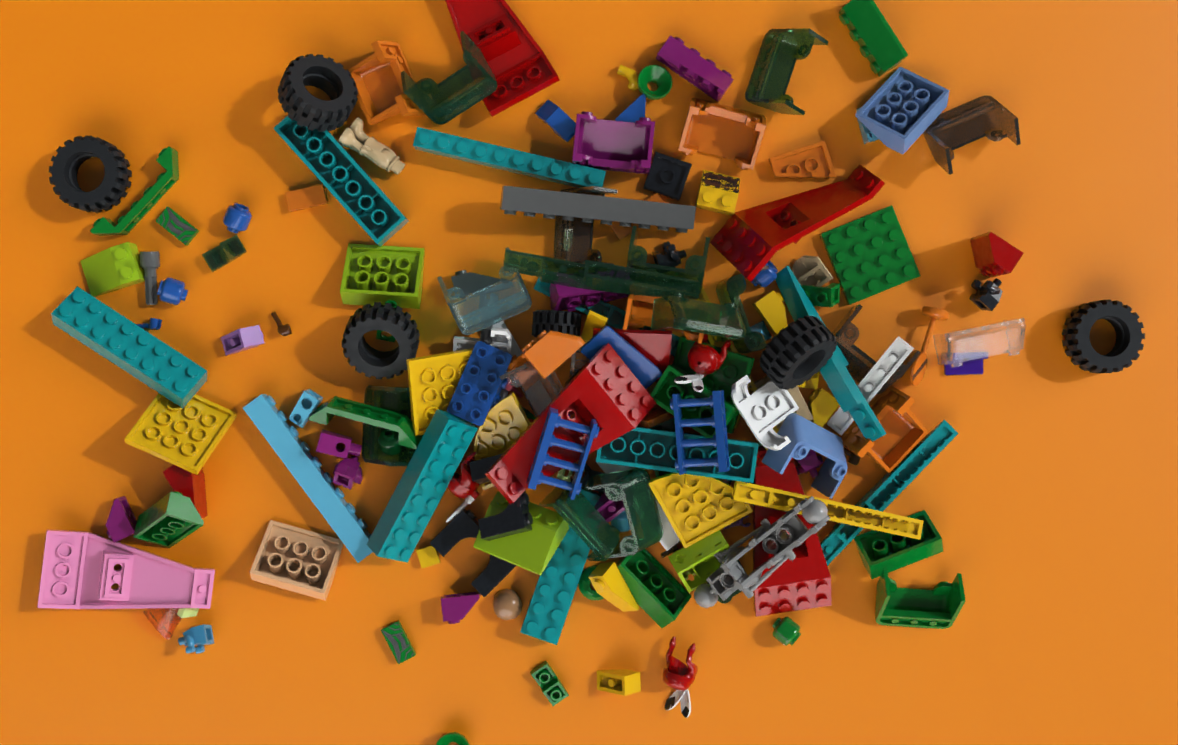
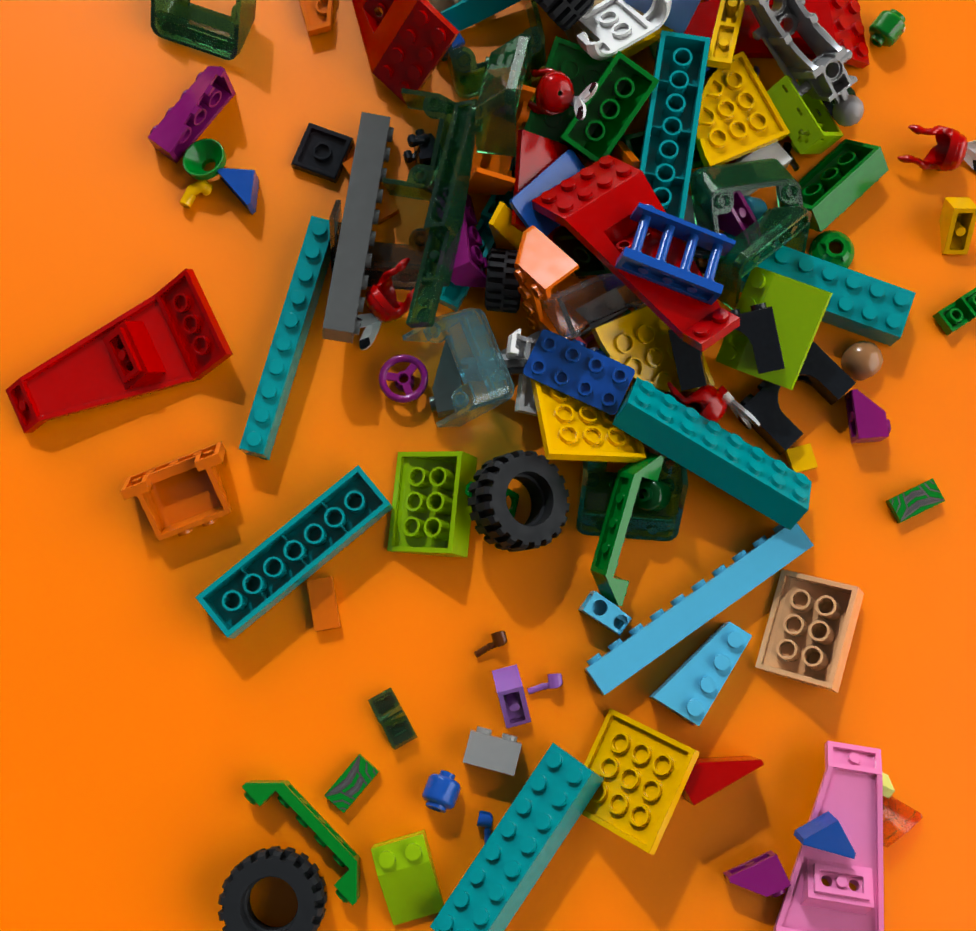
camera: 85 degrees left, 10 degrees down
(146, 565) = (825, 834): none -> blue slope
(150, 262) = (399, 822): dark grey piece -> none
(168, 520) = (761, 800): green slope -> none
(198, 636) = (920, 773): dark azure piece -> none
(201, 327) = (492, 751): none -> light grey piece
(237, 218) = (345, 697): blue head -> none
(253, 371) = (554, 681): none -> medium lavender hand
(261, 480) = (702, 675): none -> medium azure wedge
(326, 76) = (184, 573): black tyre -> none
(328, 444) = (655, 570): magenta torso -> none
(348, 472) = (692, 557): magenta piece -> none
(369, 147) = (264, 513): tan piece -> none
(457, 92) = (194, 395): clear green windscreen -> none
(466, 255) = (407, 386): none -> magenta piece
(536, 232) = (383, 305): none -> red hair
(557, 120) = (245, 274): blue slope -> none
(612, 586) = (838, 223): yellow slope -> none
(613, 144) = (278, 203): magenta windscreen -> none
(718, 192) = (347, 91): yellow slope -> none
(719, 440) = (634, 66): blue fence -> none
(723, 132) = (274, 81): orange windscreen -> none
(772, 311) = (496, 30): yellow slope -> none

